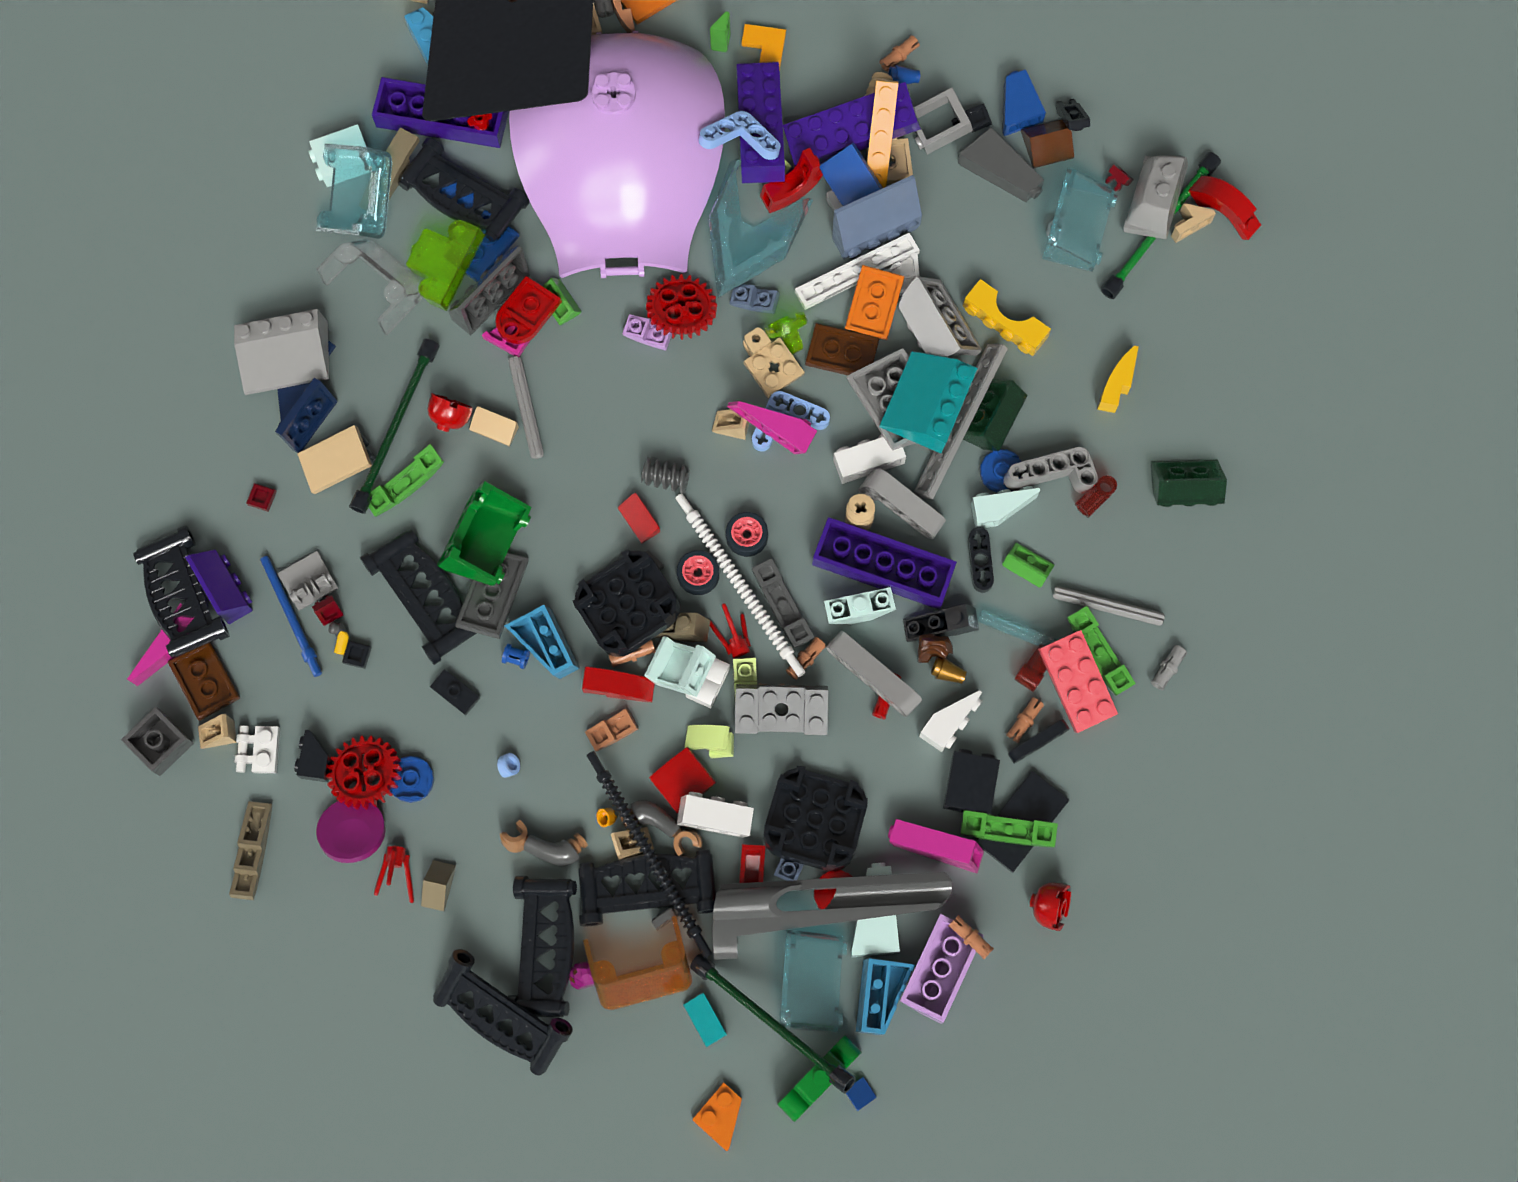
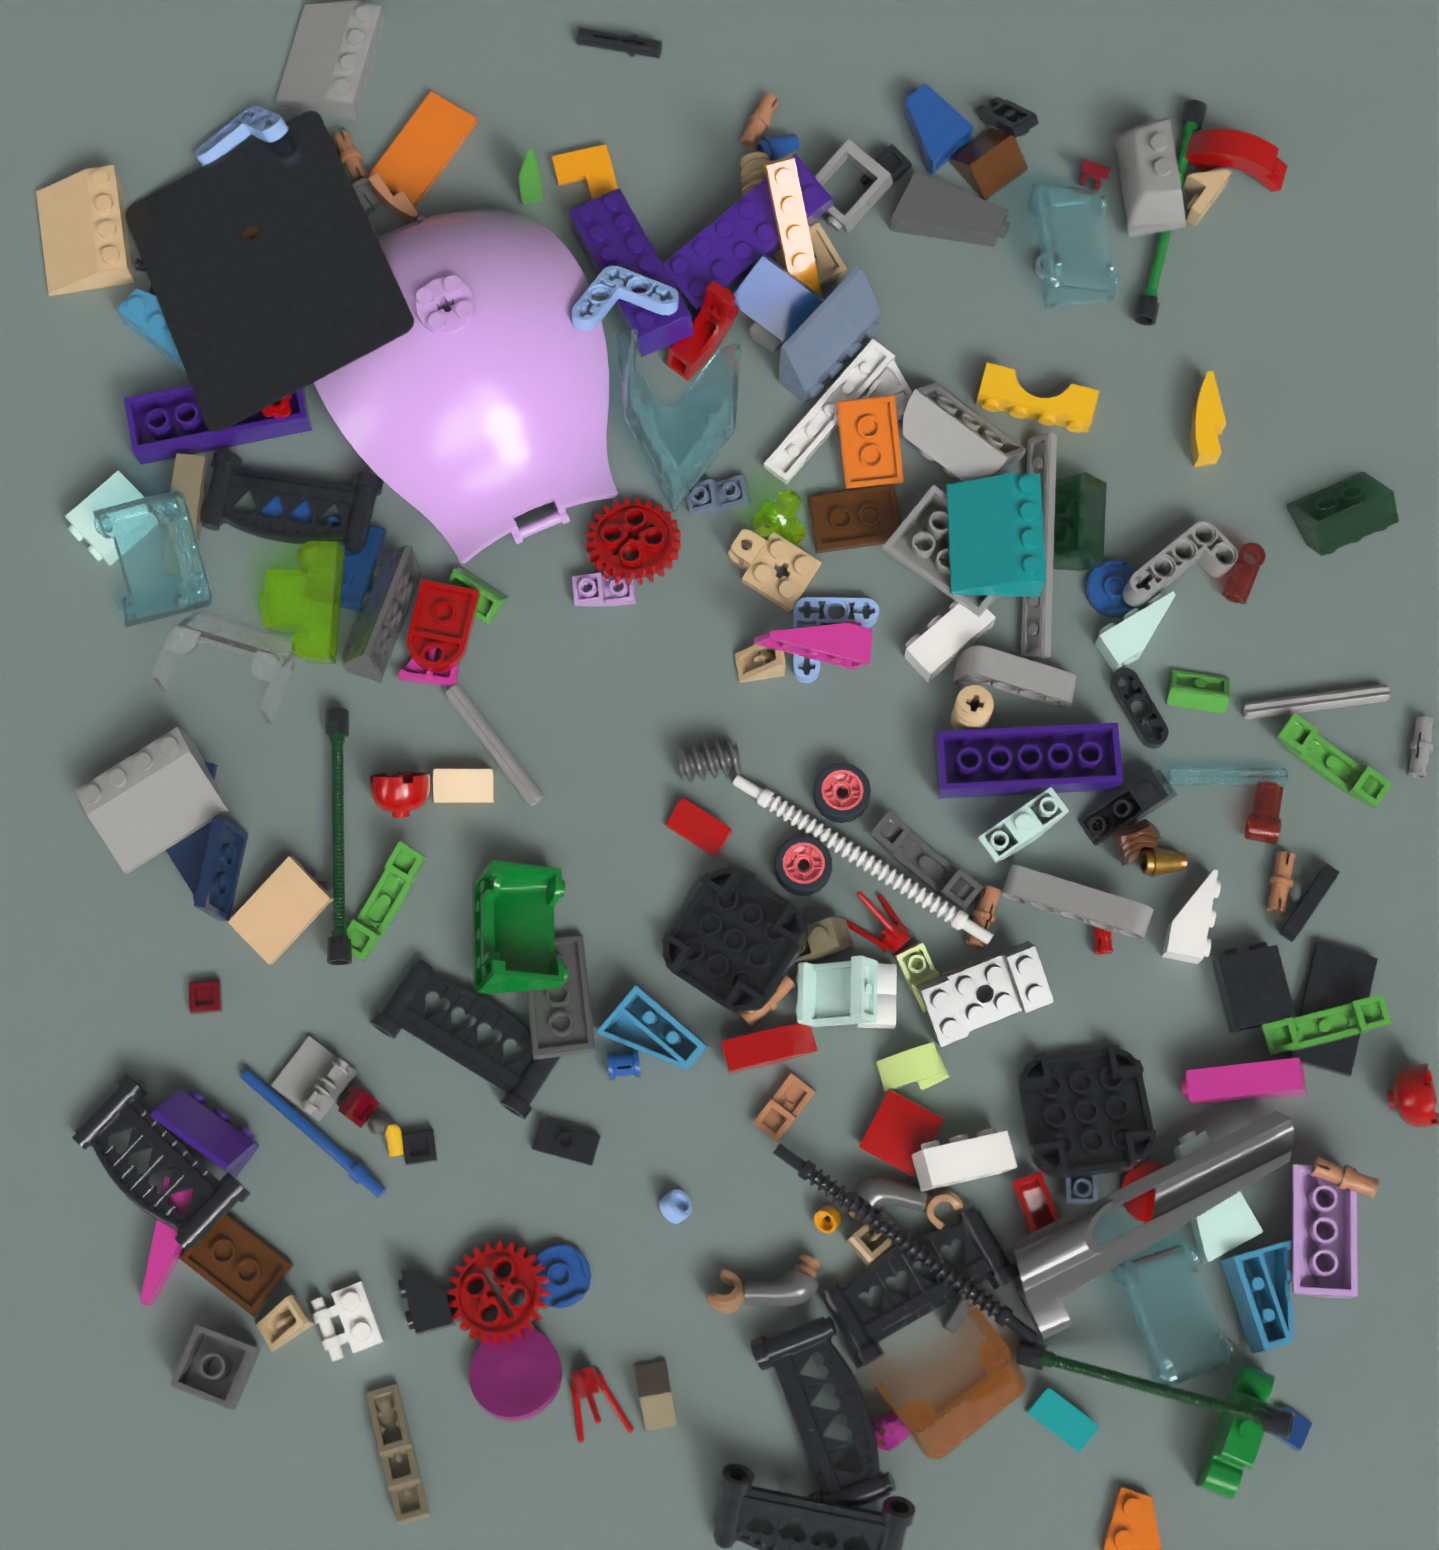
camera: 25 degrees left, 0 degrees up
(1078, 681) = (1324, 809): coral piece -> none

